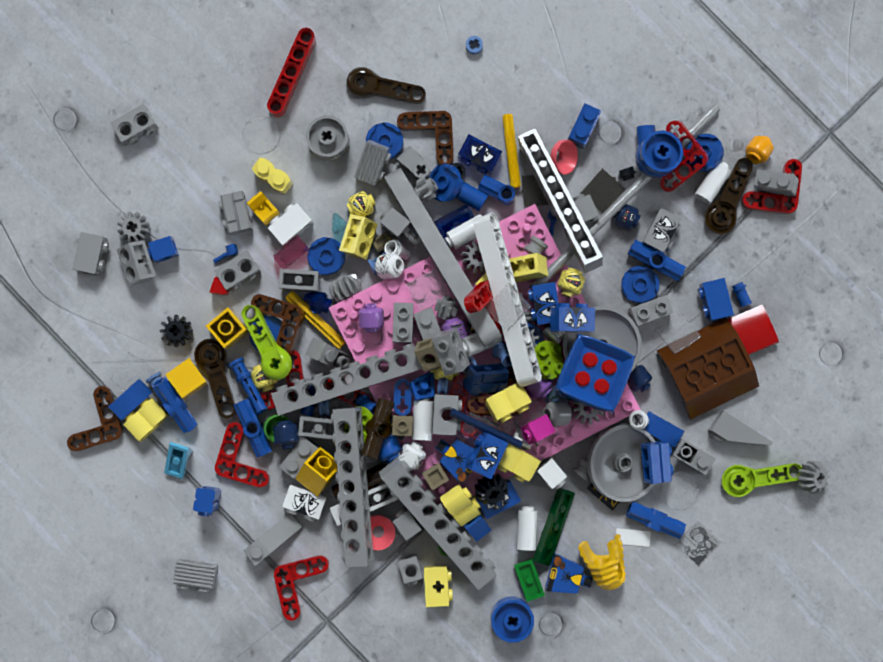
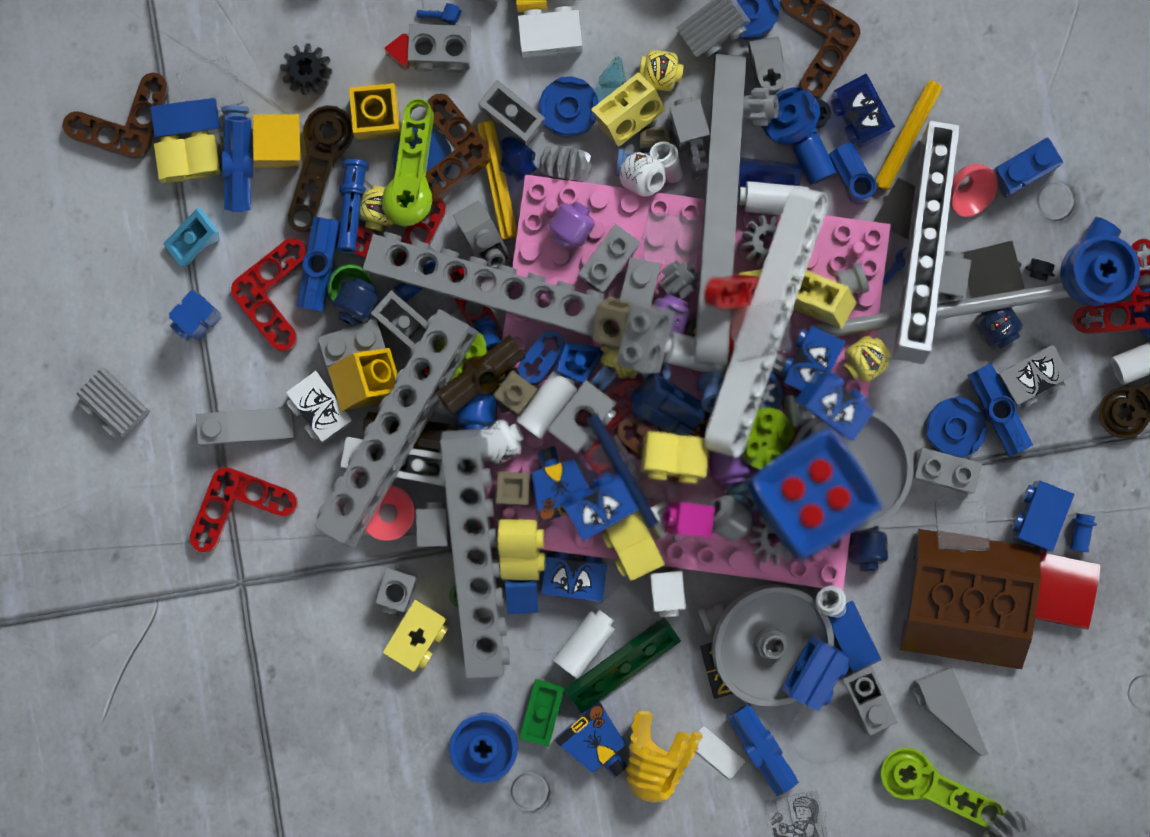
camera: 35 degrees right, 0 degrees up
(290, 252) = (526, 69): clear pink piece -> none
(324, 408) = (429, 302): medium blue bush -> none
(491, 490) = (574, 557): black gear -> none

